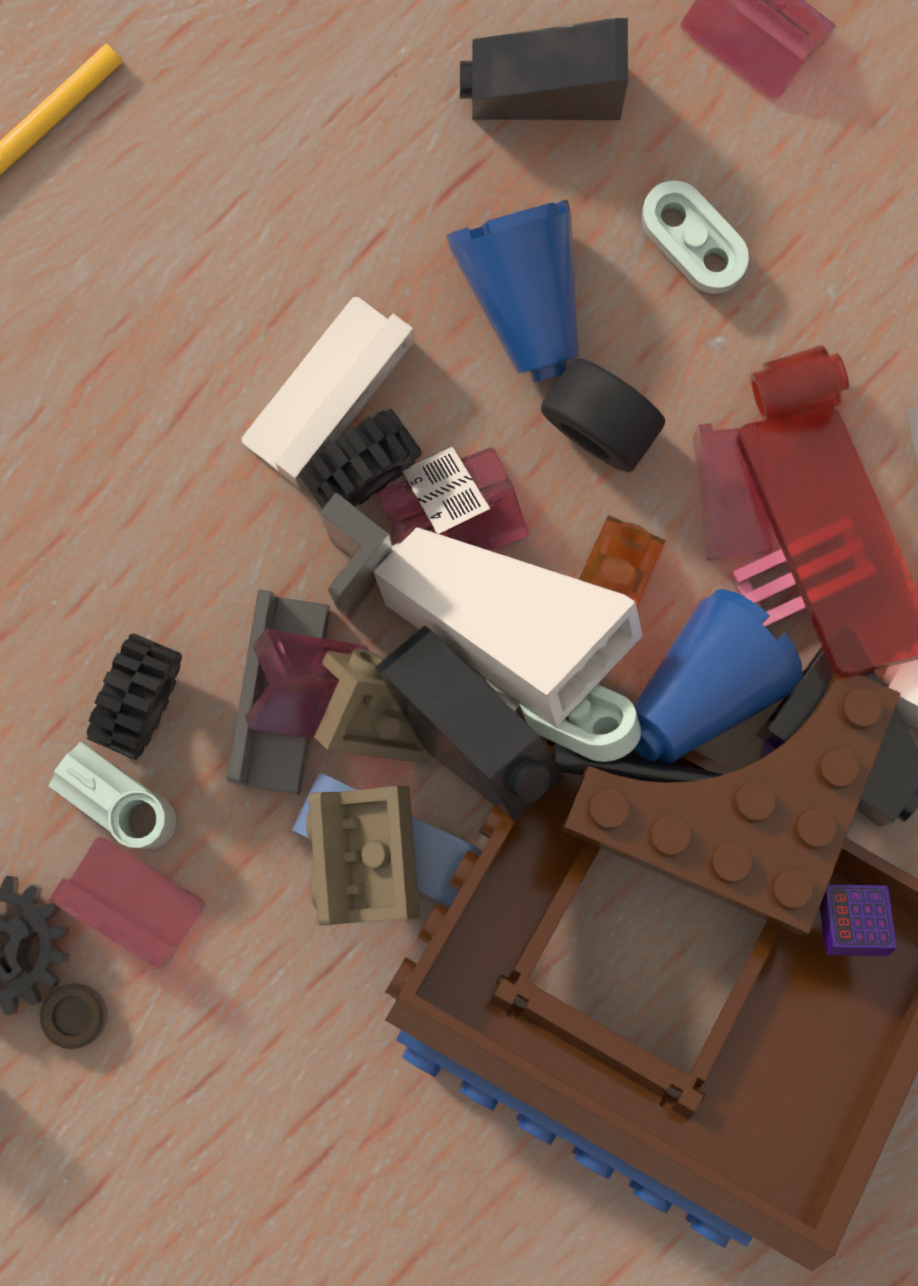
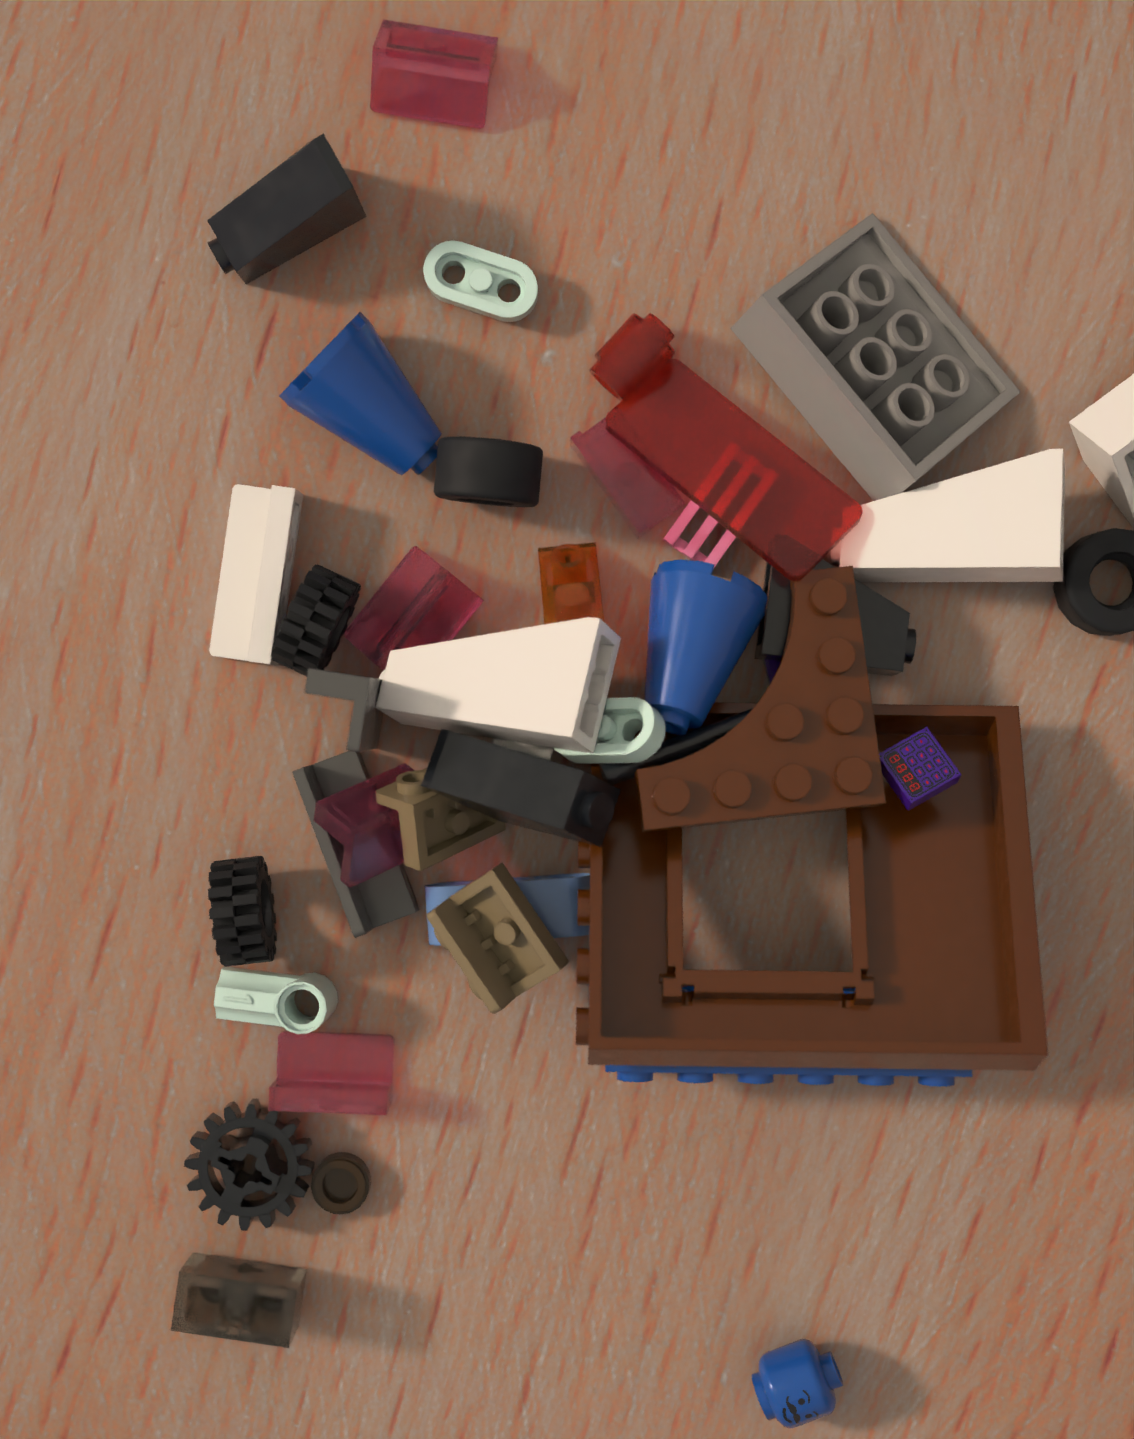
camera: 30 degrees left, 5 degrees up
(445, 490) = (396, 604): white sticker -> none

